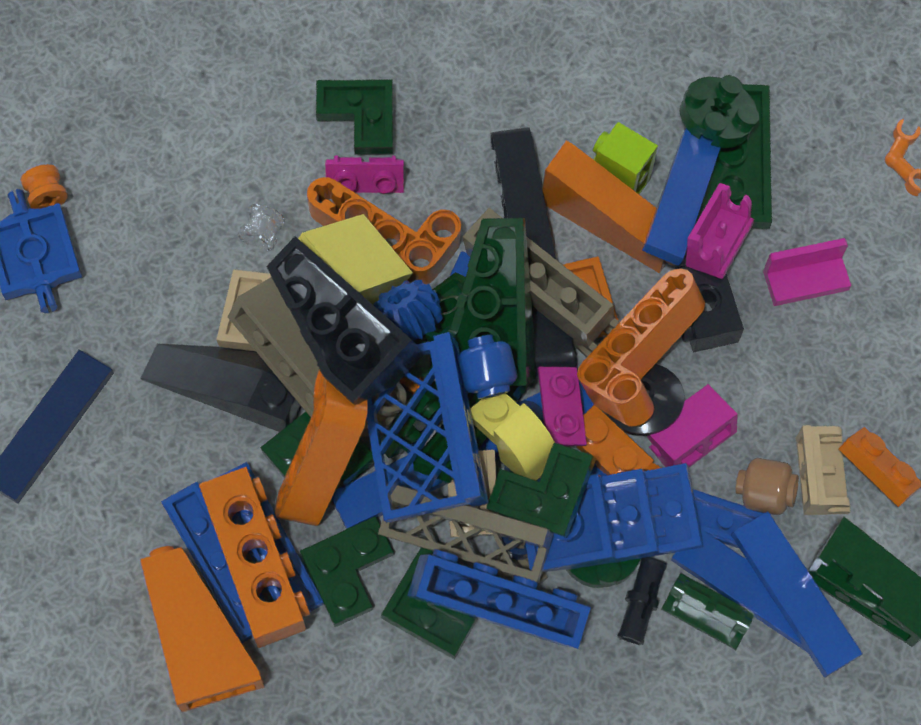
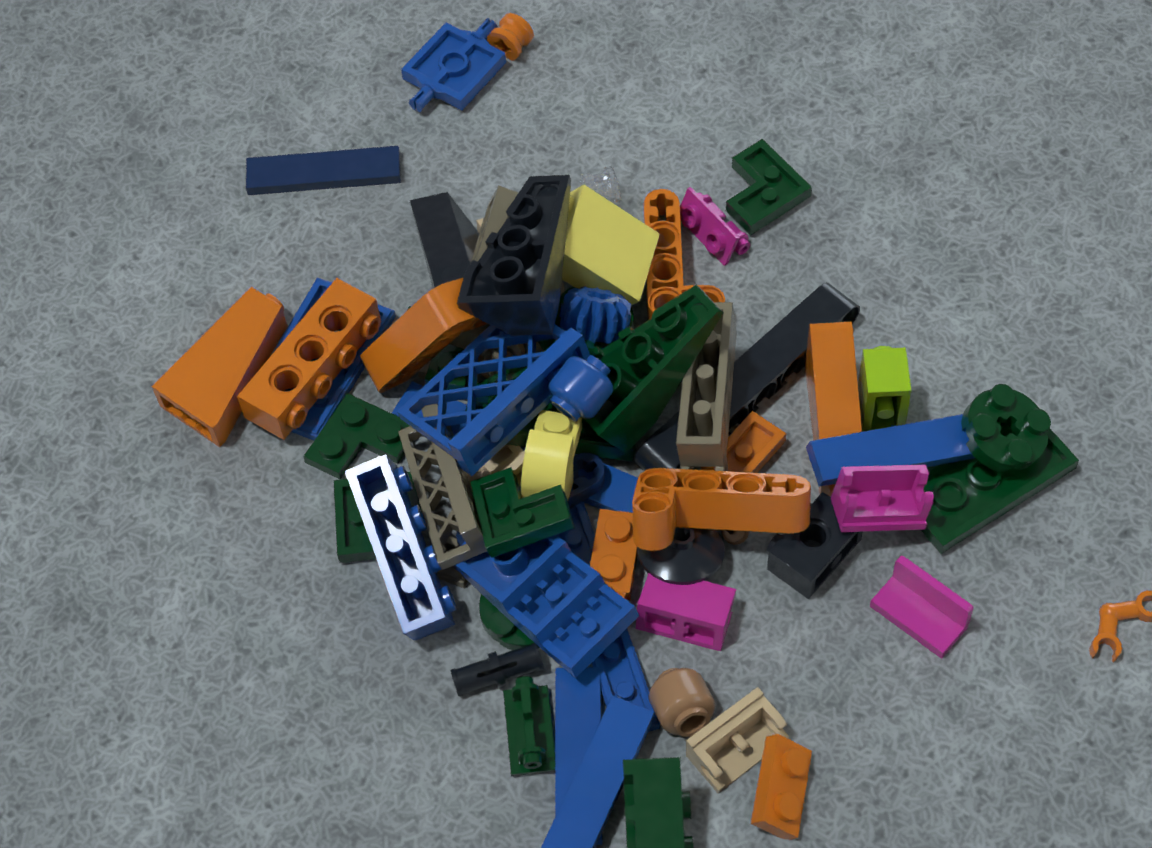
camera: 60 degrees right, 10 degrees down
(562, 405) = (609, 487): dark pink hinge -> none

